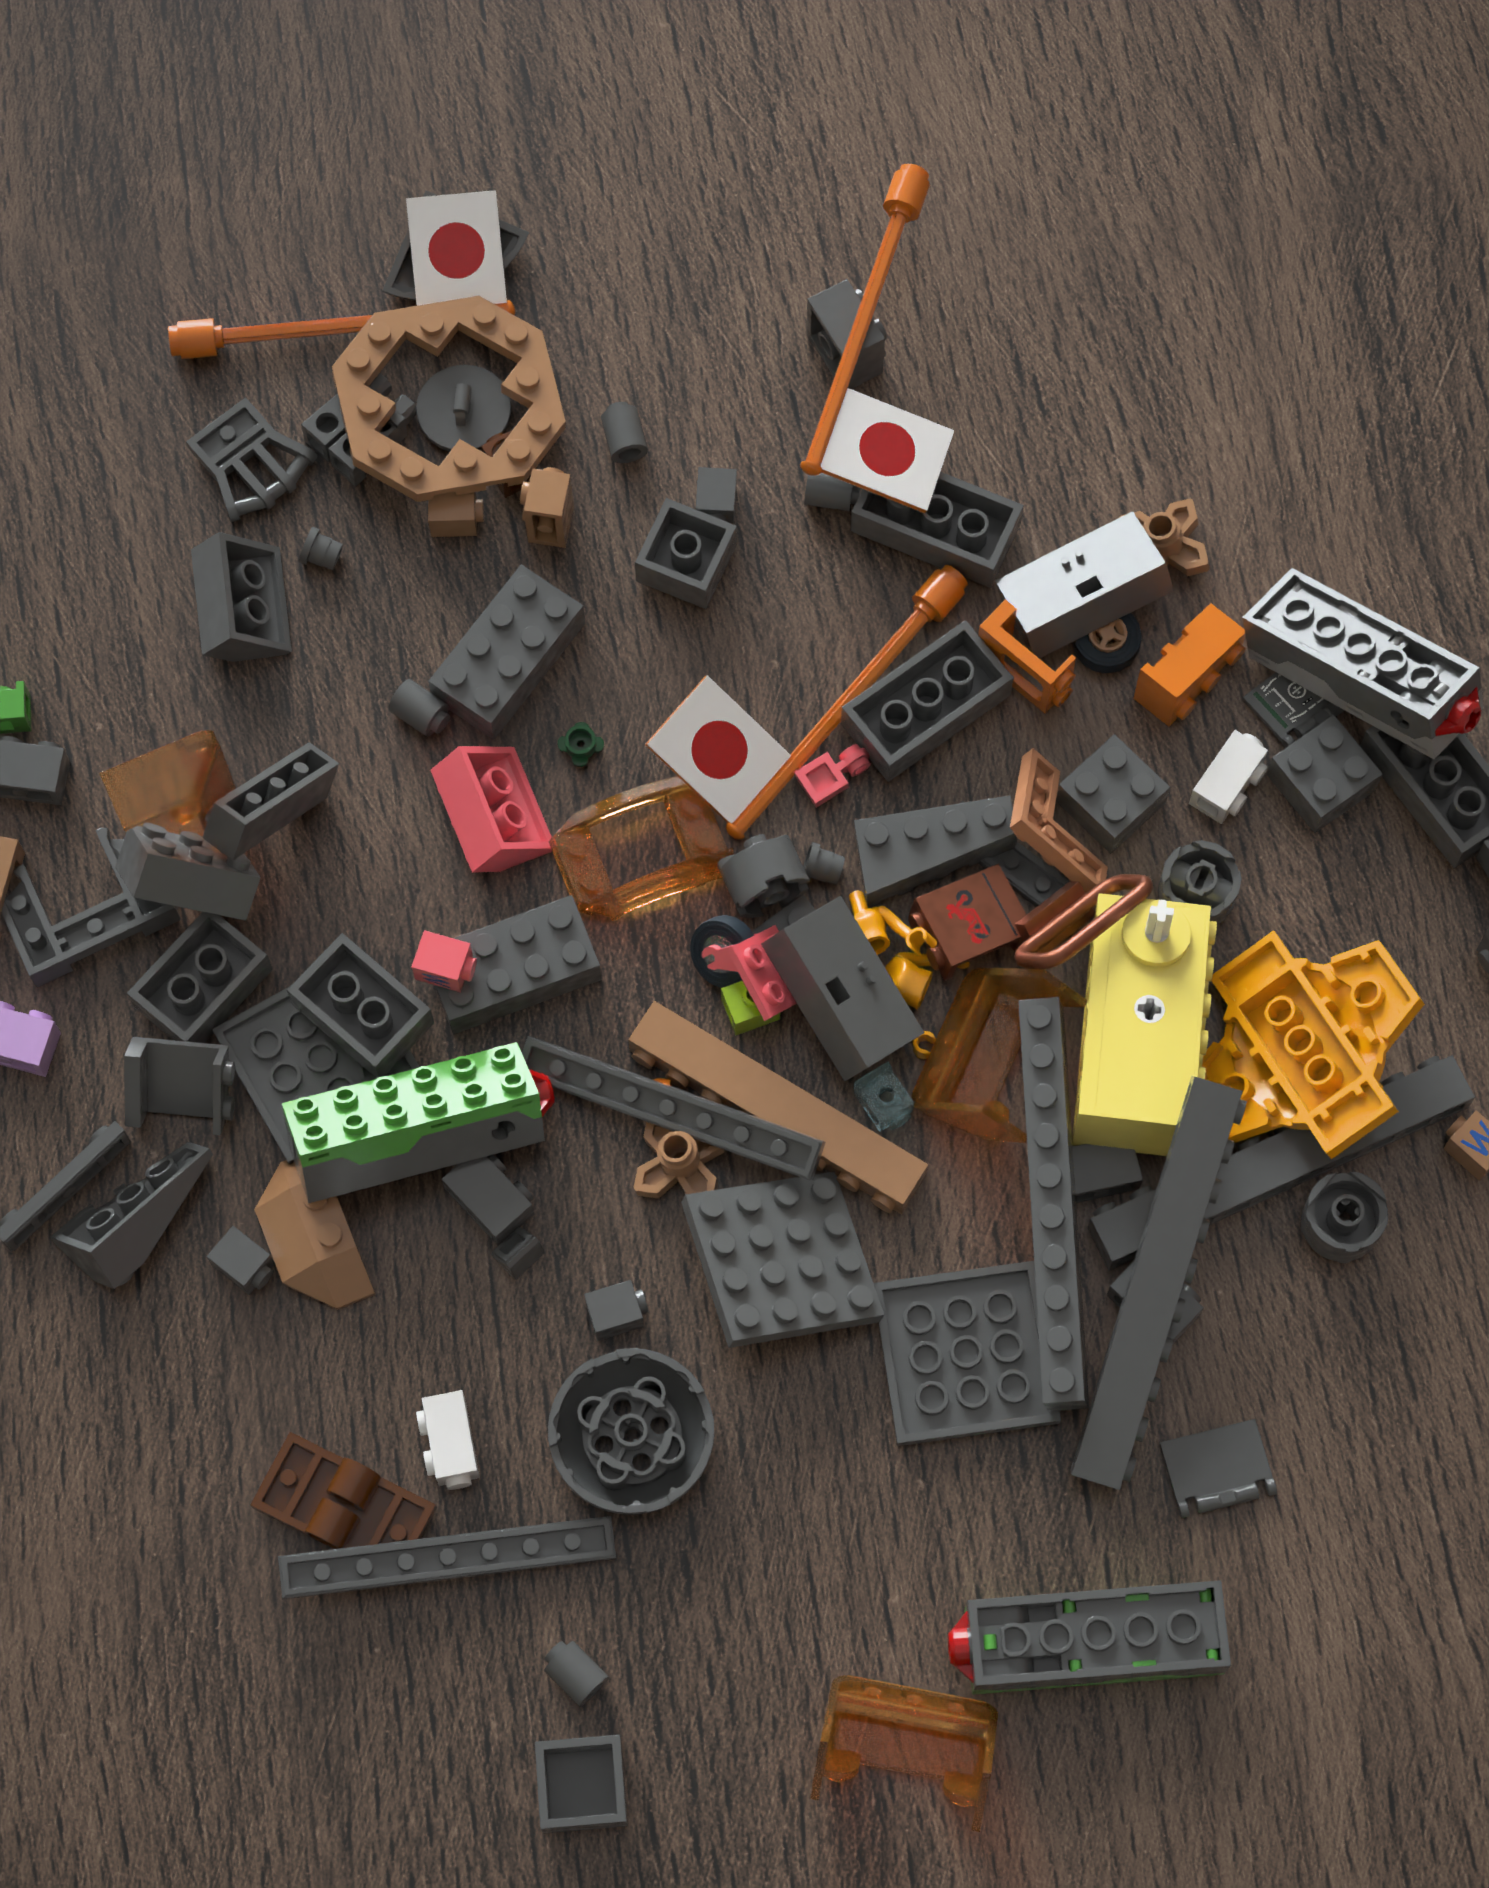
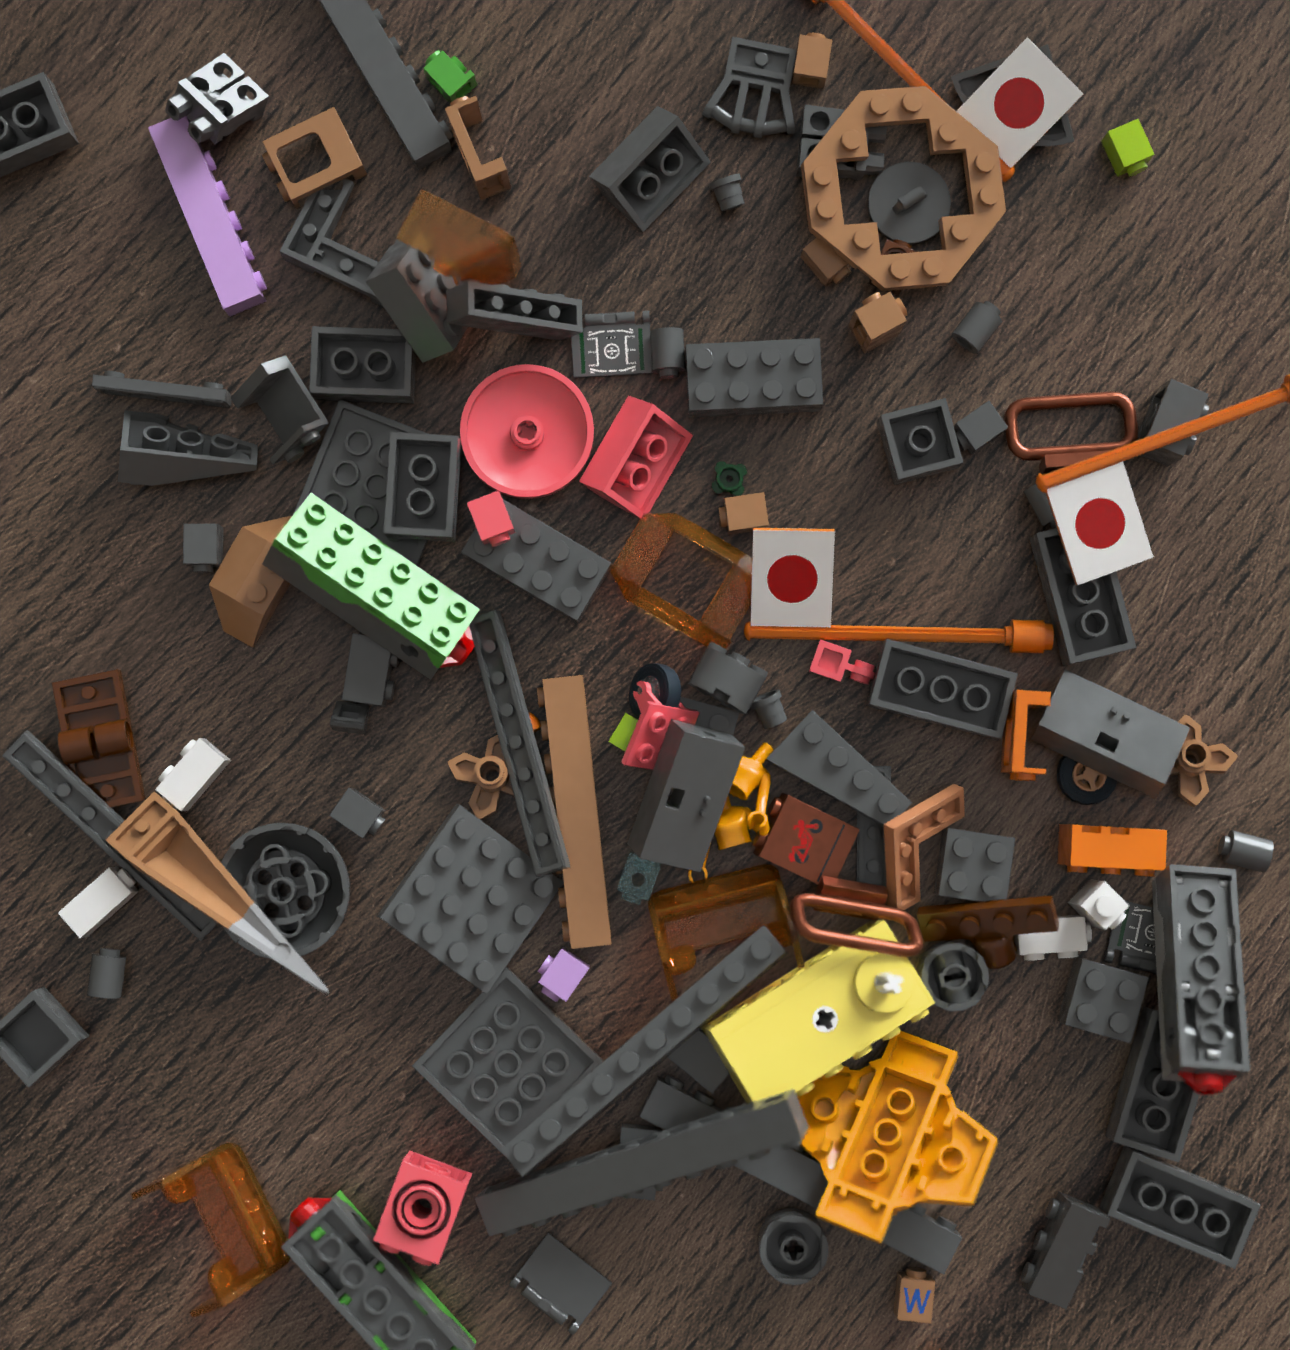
camera: 50 degrees right, 15 degrees up
(116, 743) = (489, 177): none -> medium nougat window
(267, 392) = (812, 60): none -> medium nougat brick
(372, 754) = (612, 346): none -> dark grey piece
(387, 880) = (527, 431): none -> coral dish
(498, 1620) = (99, 901): none -> white brick
(514, 1503) = (173, 855): none -> medium nougat plate
(573, 196) = (1128, 148): none -> lime brick
(623, 752) = (744, 513): none -> medium nougat brick
(797, 448) = (1058, 457): none -> copper bar
(921, 1236) = (561, 974): none -> lavender brick
(1043, 1558) = (418, 1229): none -> coral brick
(1177, 812) = (989, 924): none -> reddish brown plate
(1233, 706) = (1099, 905): none -> white brick
(1285, 552) = (1246, 851): none -> dark grey brick

